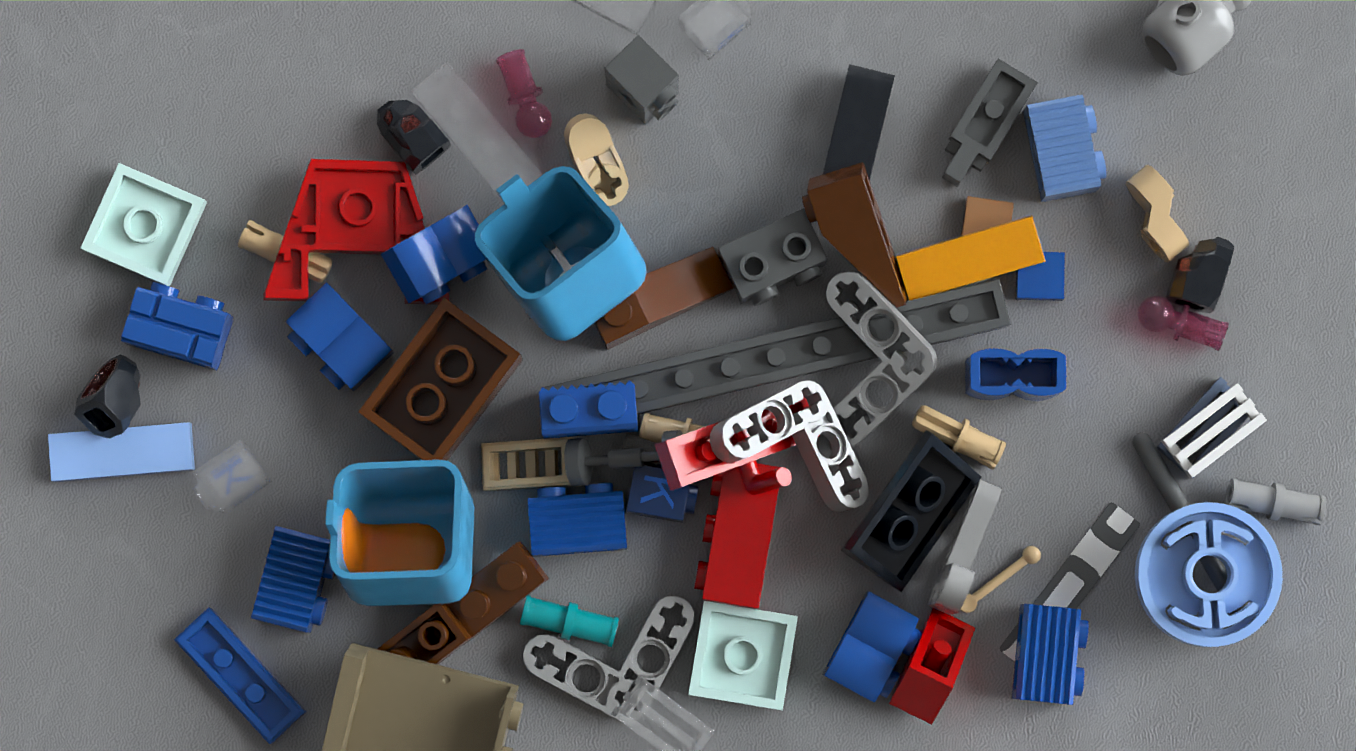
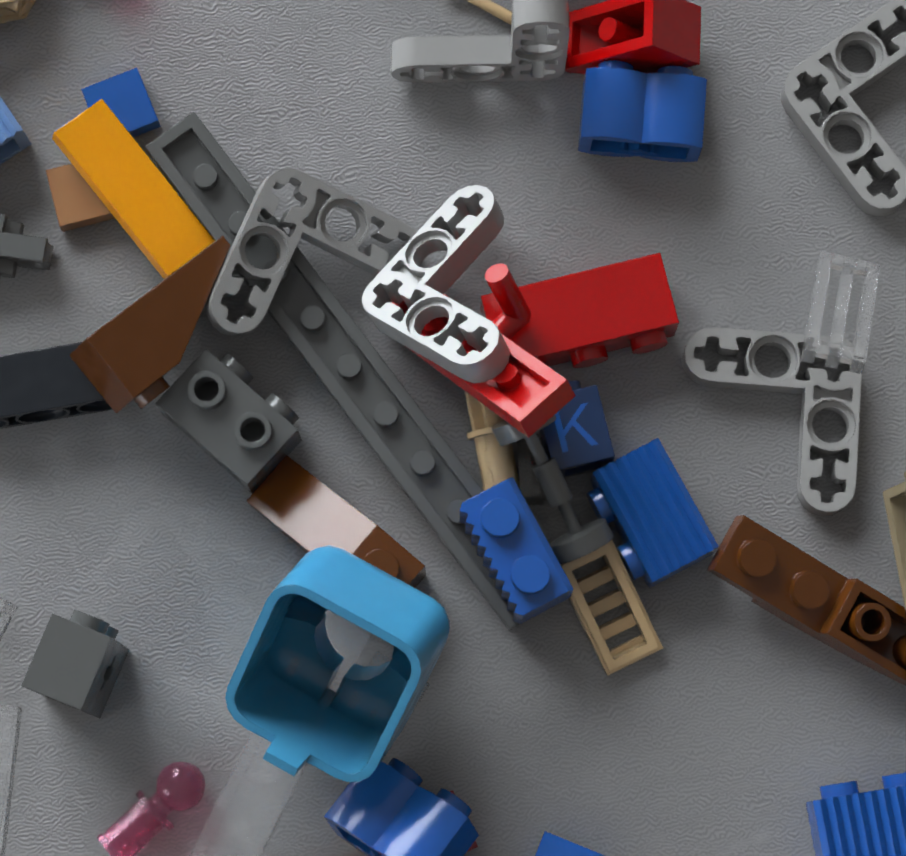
camera: 110 degrees left, 5 degrees down
(401, 532) = (768, 711): dark azure piece -> none
(441, 384) = (563, 749): reddish brown brick -> none
(569, 621) = (772, 473): teal pin -> none
(587, 138) = (176, 706): tan piece -> none
(743, 655) = (721, 254): light aqua plate -> none
(912, 511) = (462, 139): black slope -> none
(960, 436) = (351, 117): tan axle -> none
(1030, 376) = (253, 81): blue brick -> none

